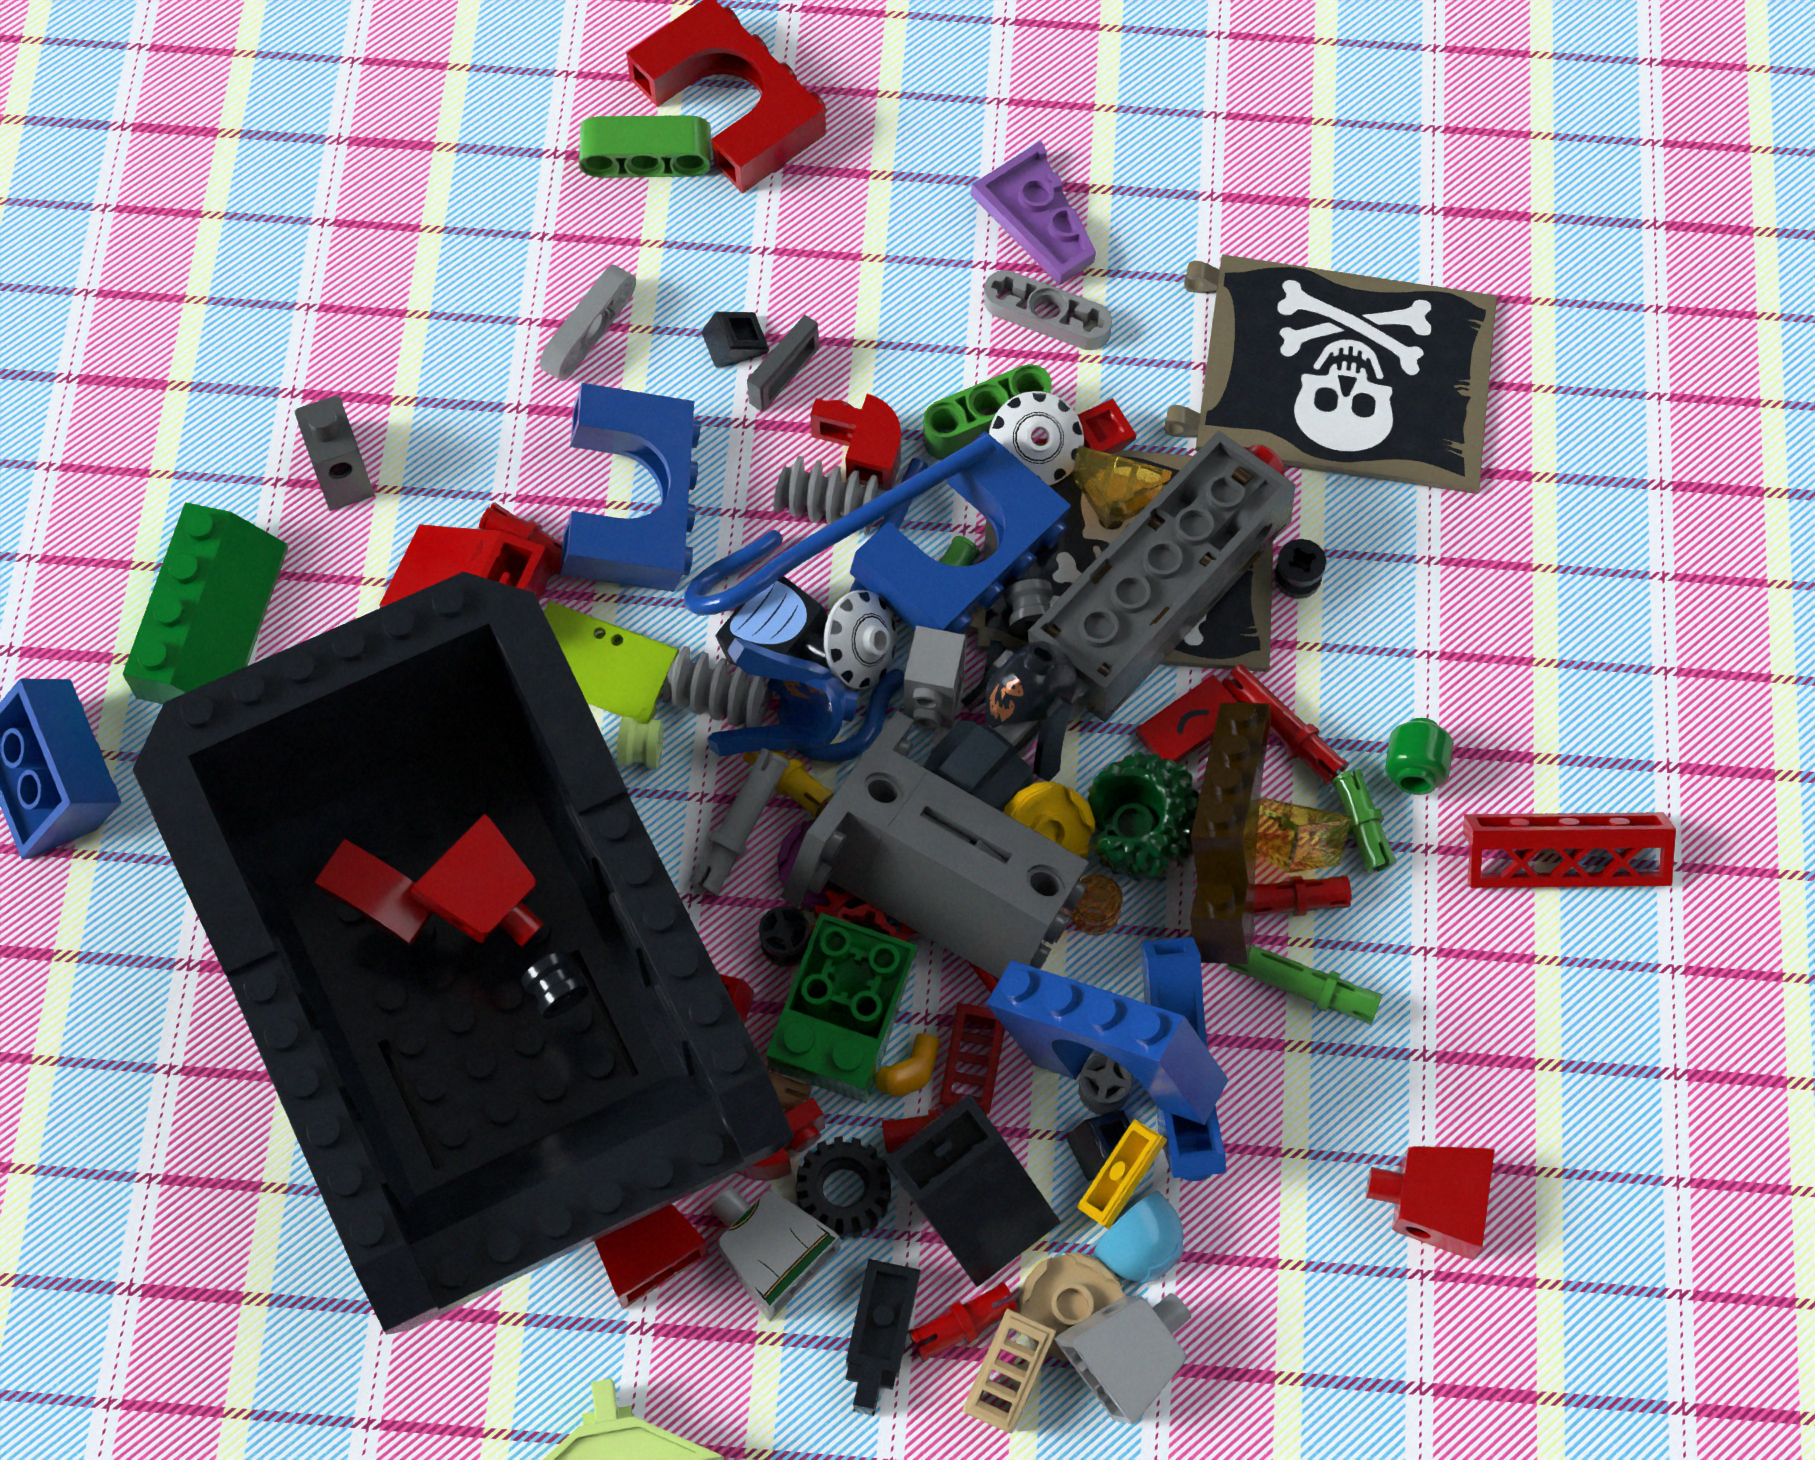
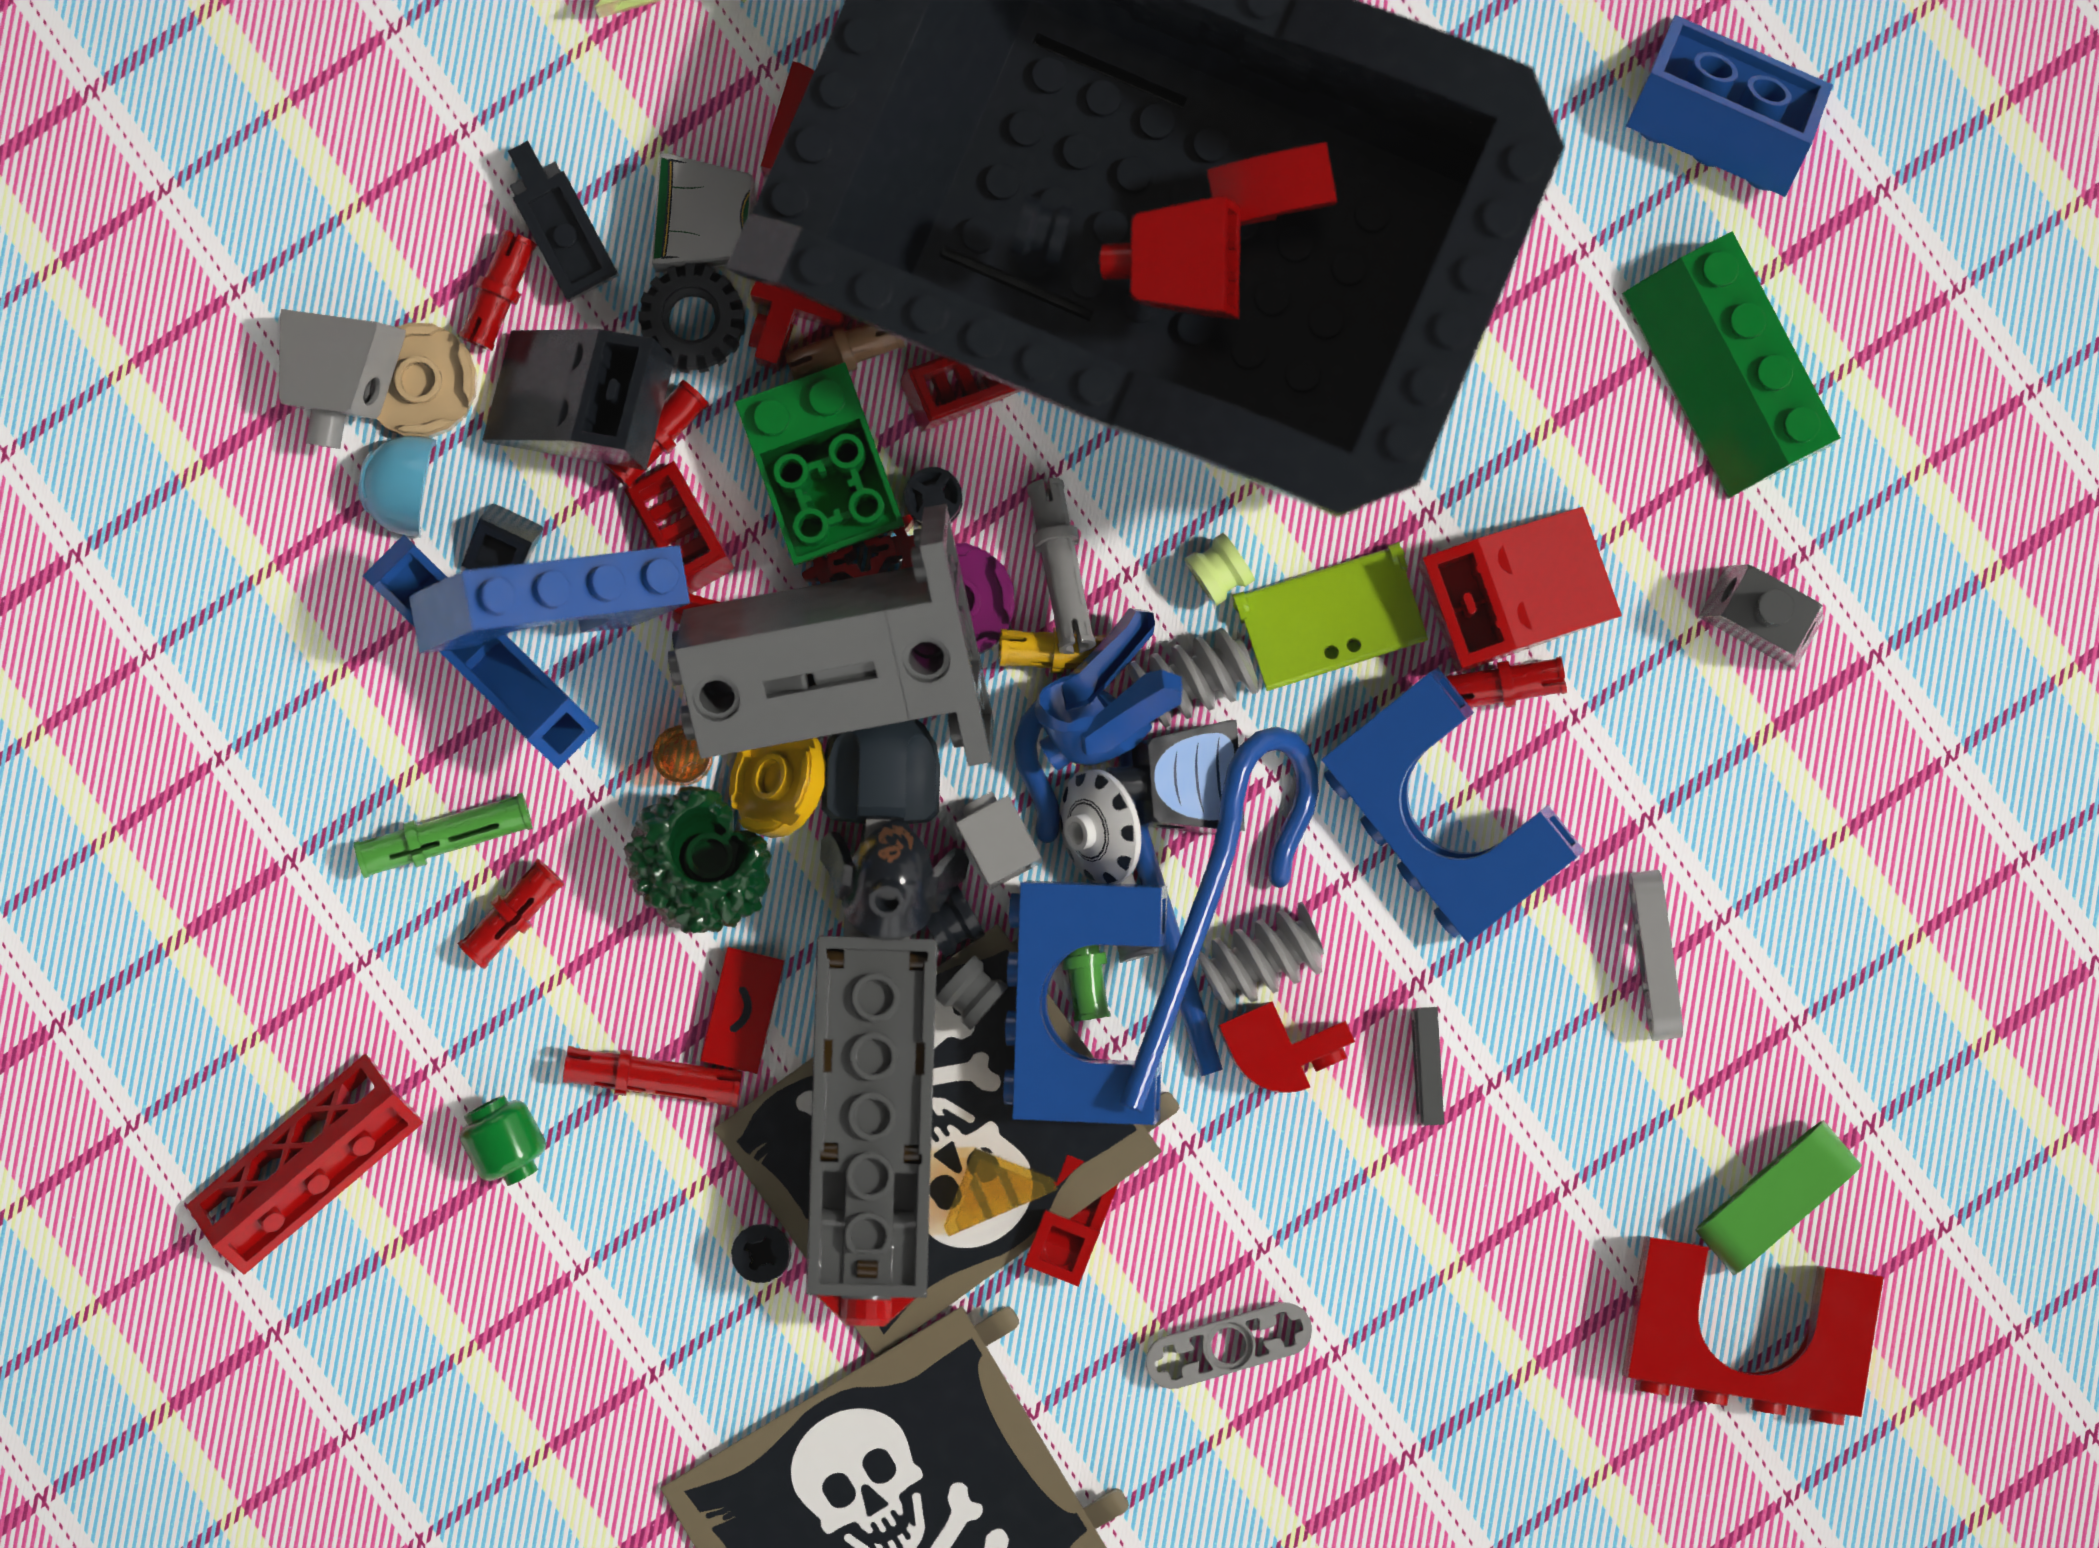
camera: 140 degrees right, 20 degrees up
(734, 338) = (1505, 1063): black slope -> none
(912, 1073) = (718, 468): light orange arm -> none
(962, 409) = (1212, 1156): bright green beam -> none
(991, 1414) = (412, 239): tan slope -> none
(1033, 210) = (1332, 1447): medium lavender wing -> none
(1044, 411) = (1134, 1188): white dish -> none
(1121, 1173) = (456, 514): yellow slope -> none
(1227, 834) = (614, 911): dark brown arch -> none
(1300, 836) = (555, 965): clear yellow slope -> none
(1364, 821) = (506, 1037): bright green pin -> none
(1438, 1196) = (179, 727): red torso -> none

